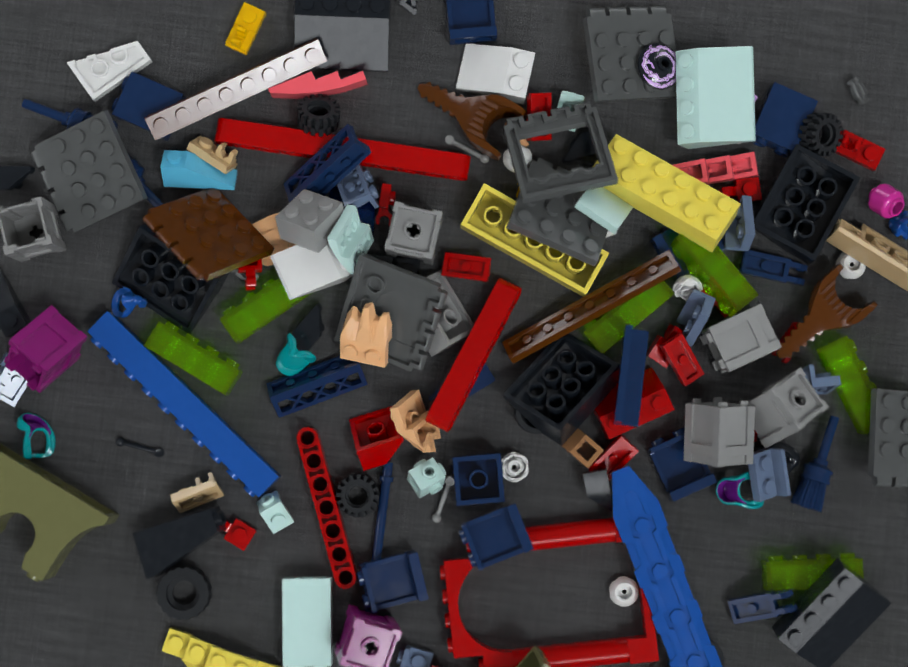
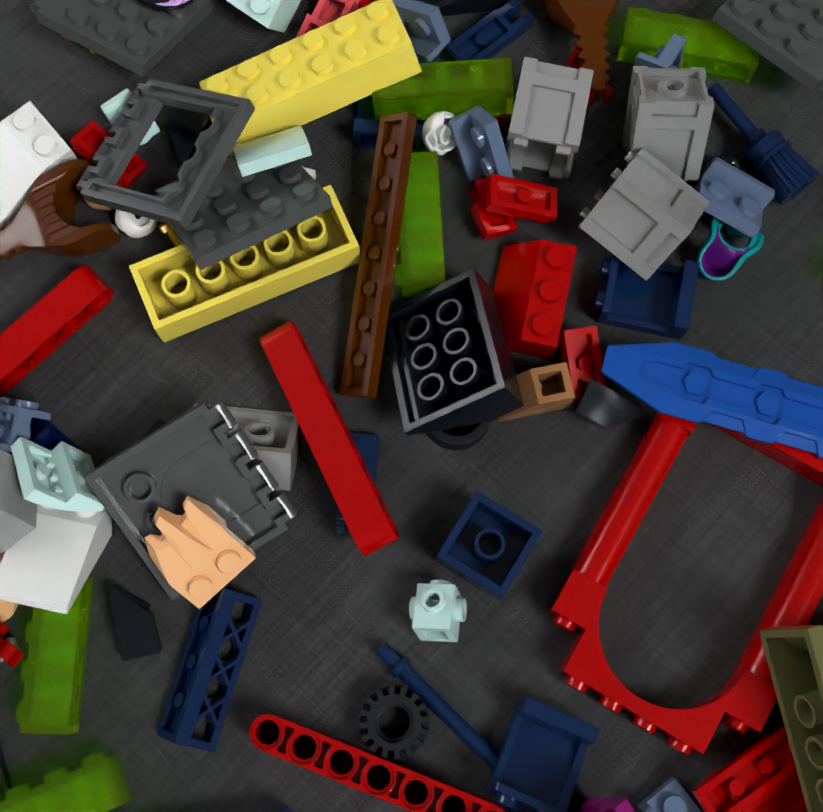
camera: 55 degrees left, 10 degrees down
(291, 360) = (151, 675): teal piece -> none
(375, 438) = (337, 638): red slope -> none
(387, 198) = (54, 402): red plate -> none
(410, 422) = (352, 575): light nougat plate -> none
(423, 244) = (131, 408): light grey container -> none
(449, 481) = (464, 586): light grey hinge -> none
(450, 140) = (51, 279): light grey hinge -> none
(466, 267) = (214, 366): red plate -> none
(495, 536) = (580, 575): dark blue panel -> none
(521, 469) = (511, 482): white plate -> none
(620, 584) = (745, 472): white plate -> none
(631, 377) = (499, 265): dark blue fence -> none

